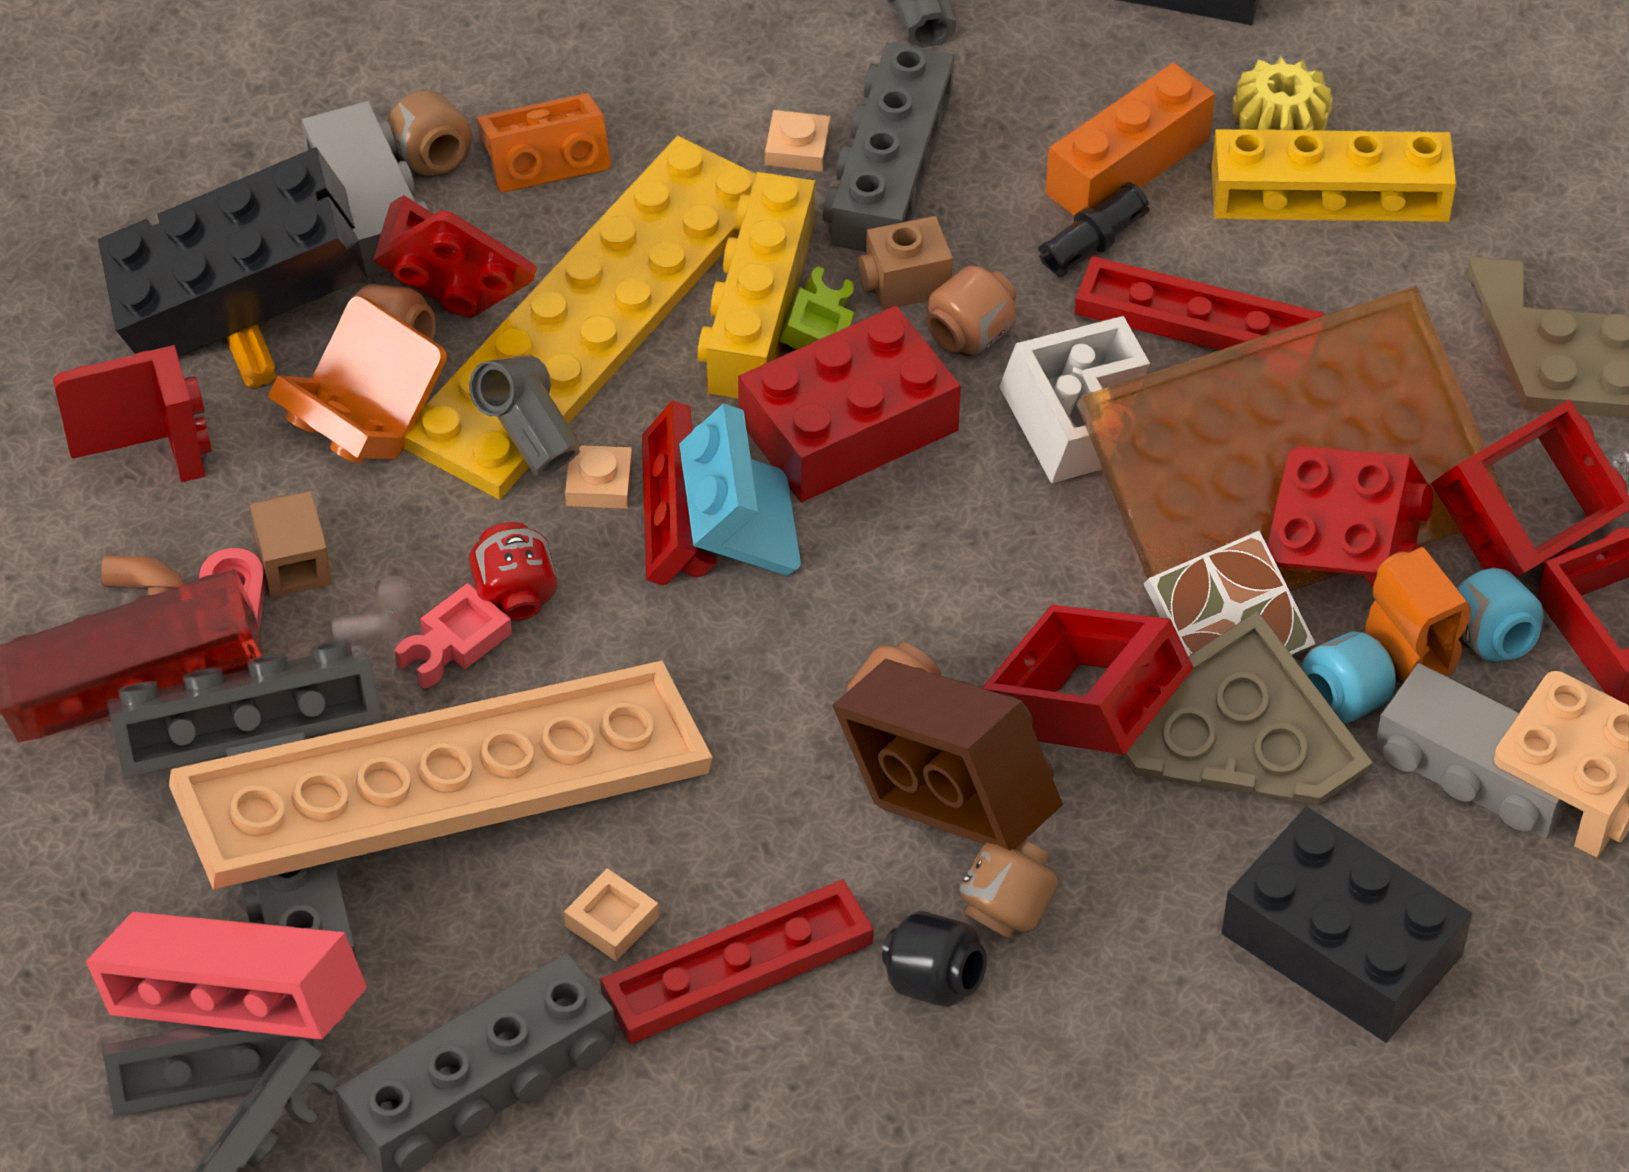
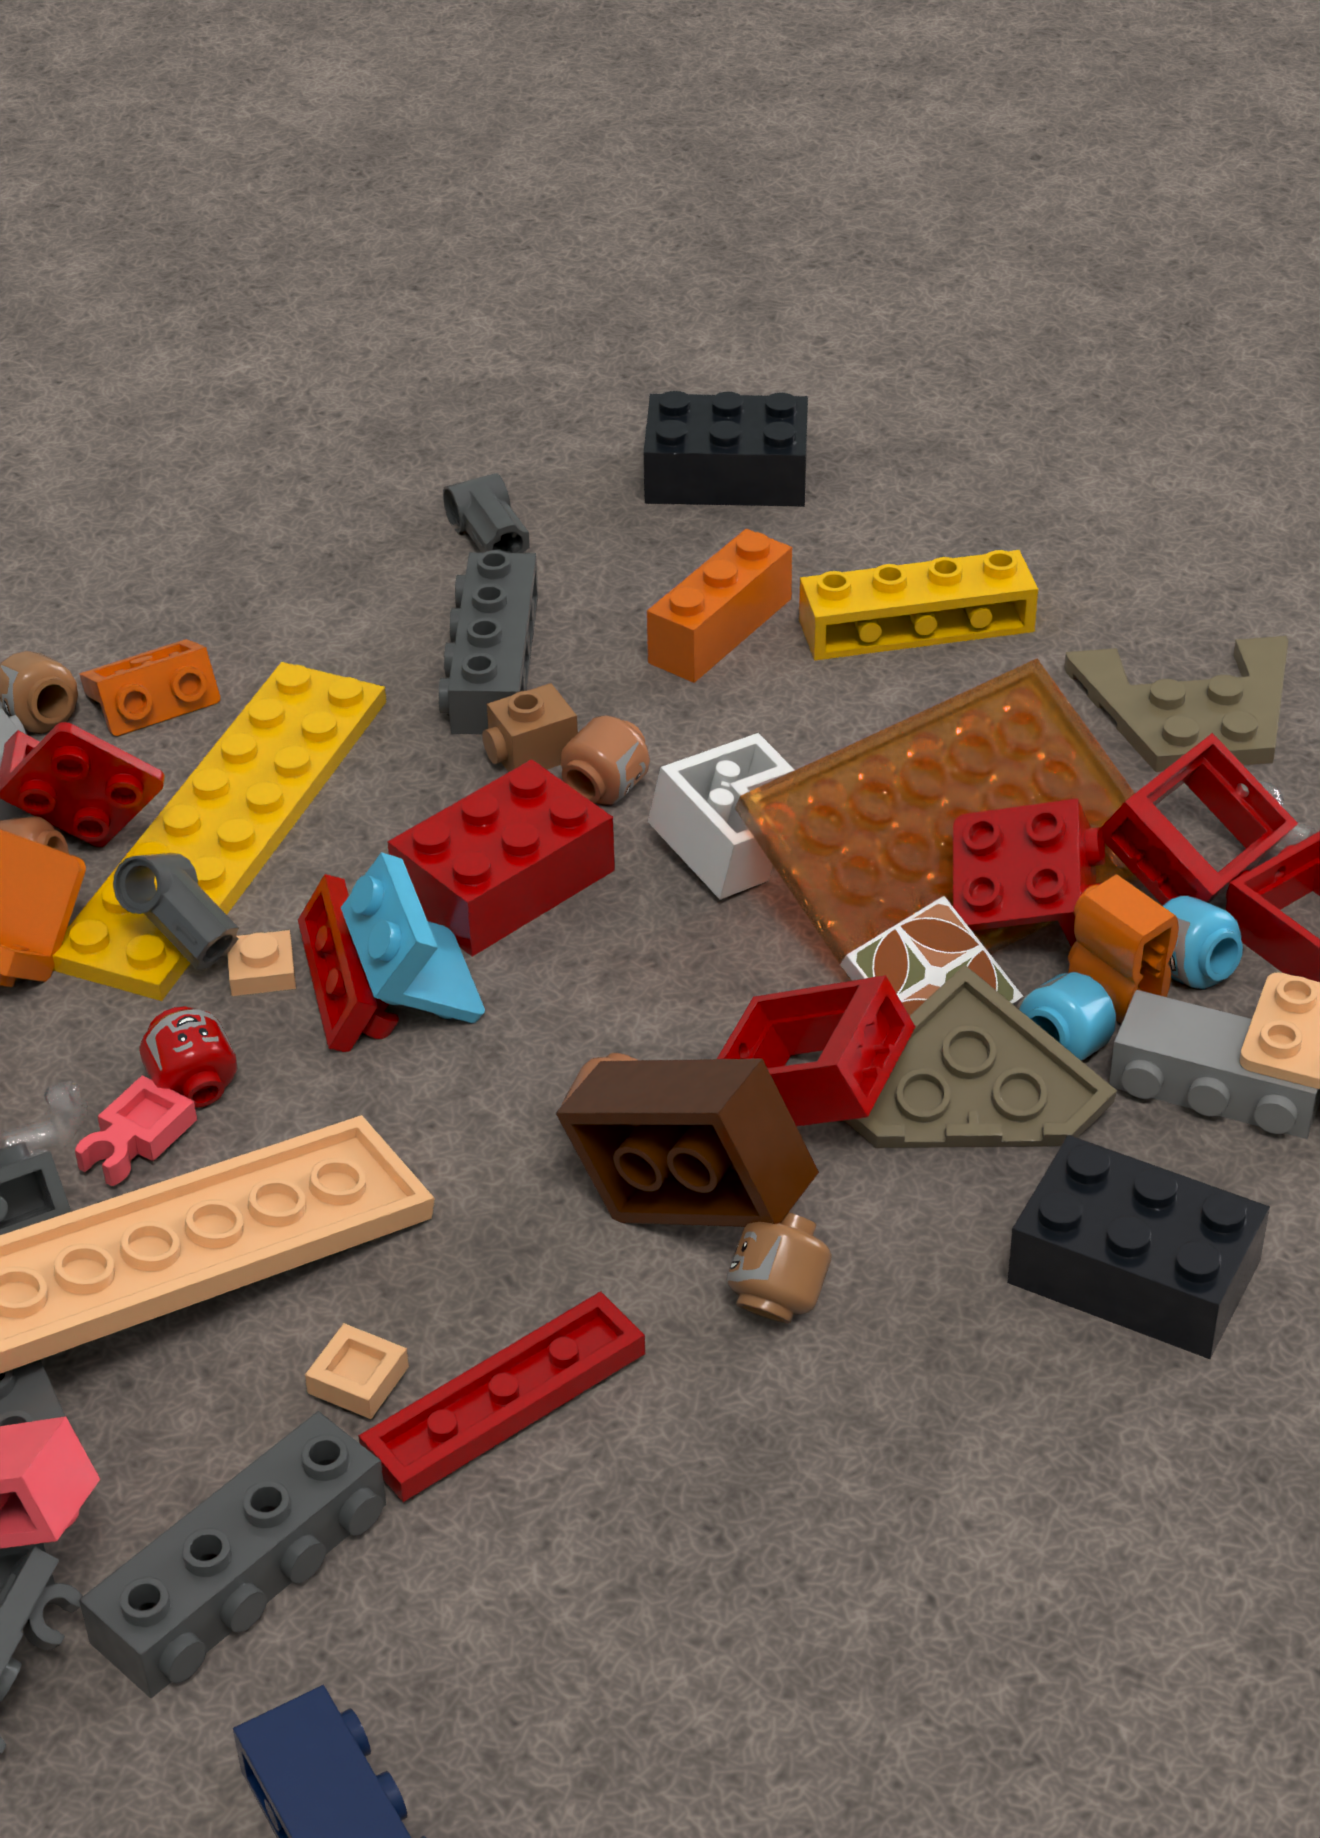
camera: 10 degrees left, 10 degrees down
(761, 279) = (390, 762): yellow brick -> none
(797, 140) = (399, 651): light nougat plate -> none
(816, 311) = (449, 782): lime plate -> none
(934, 959) = (717, 1354): black head -> none
(1094, 229) = (703, 681): black pin -> none
(1181, 306) = (794, 730): red plate -> none
(1282, 98) = (851, 545): light yellow gear -> none

